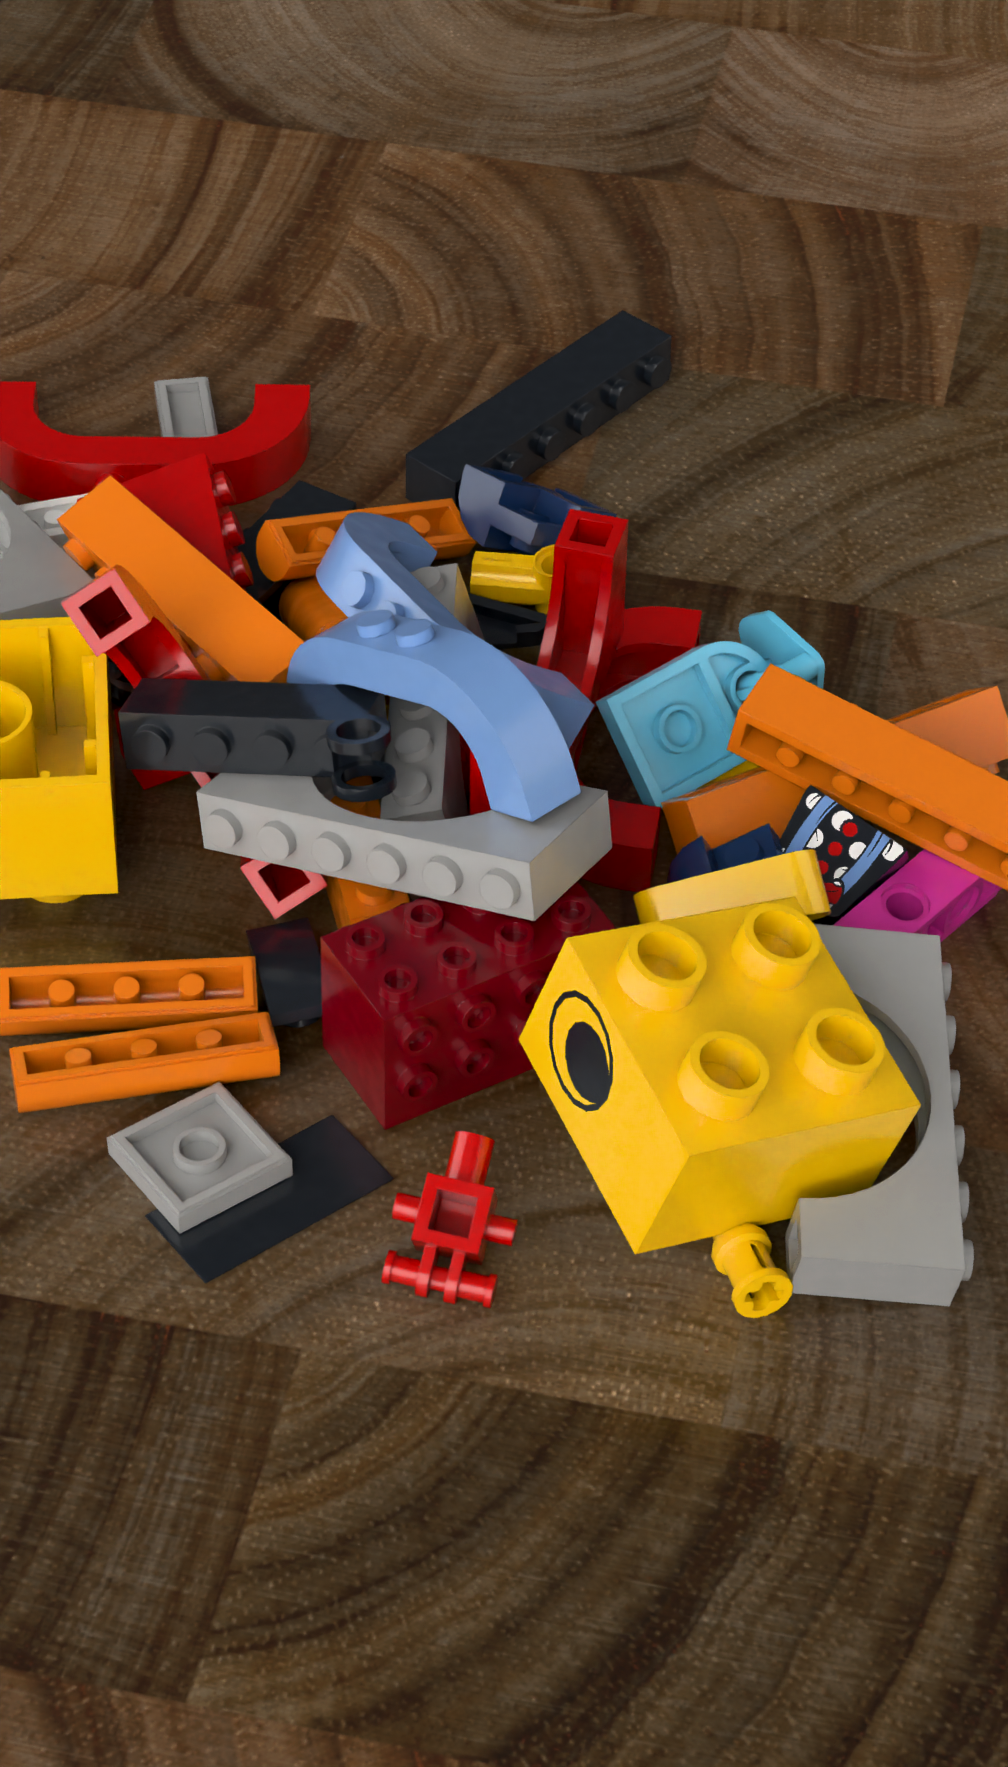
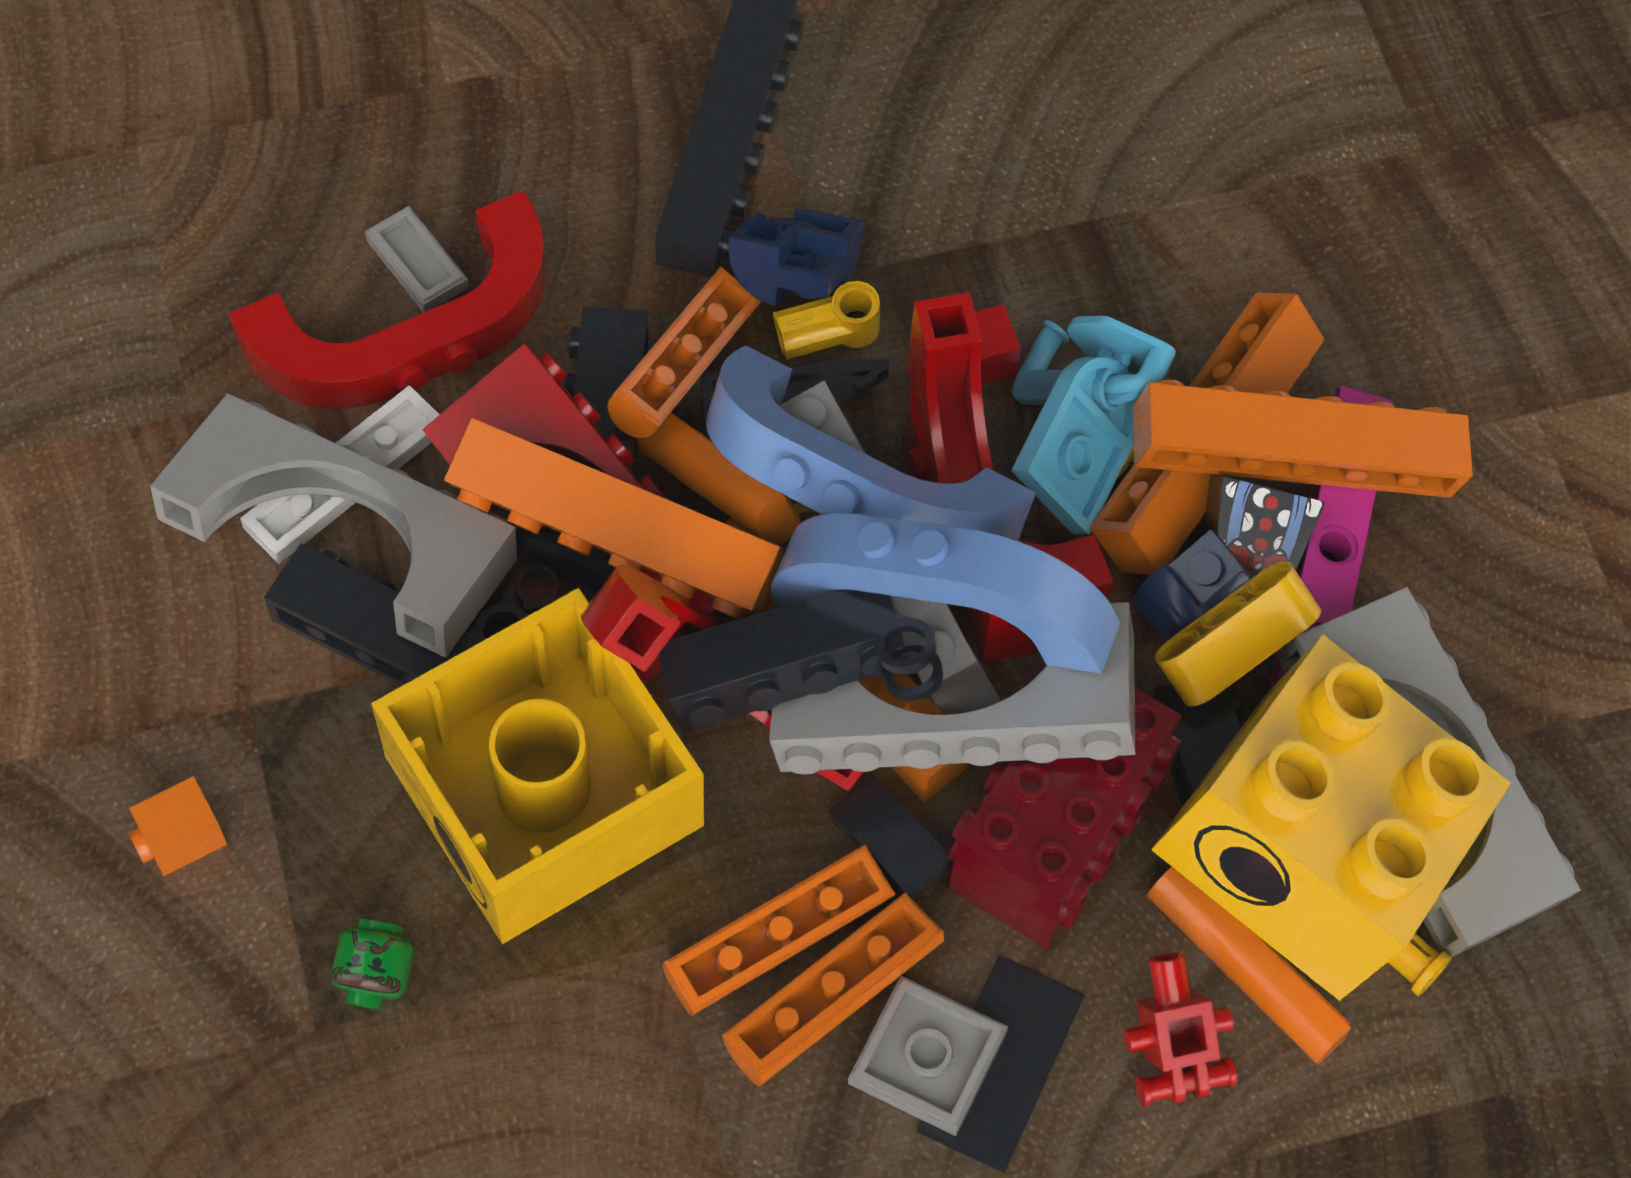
camera: 30 degrees left, 20 degrees up
(576, 1214) = (1252, 966): none -> orange brick

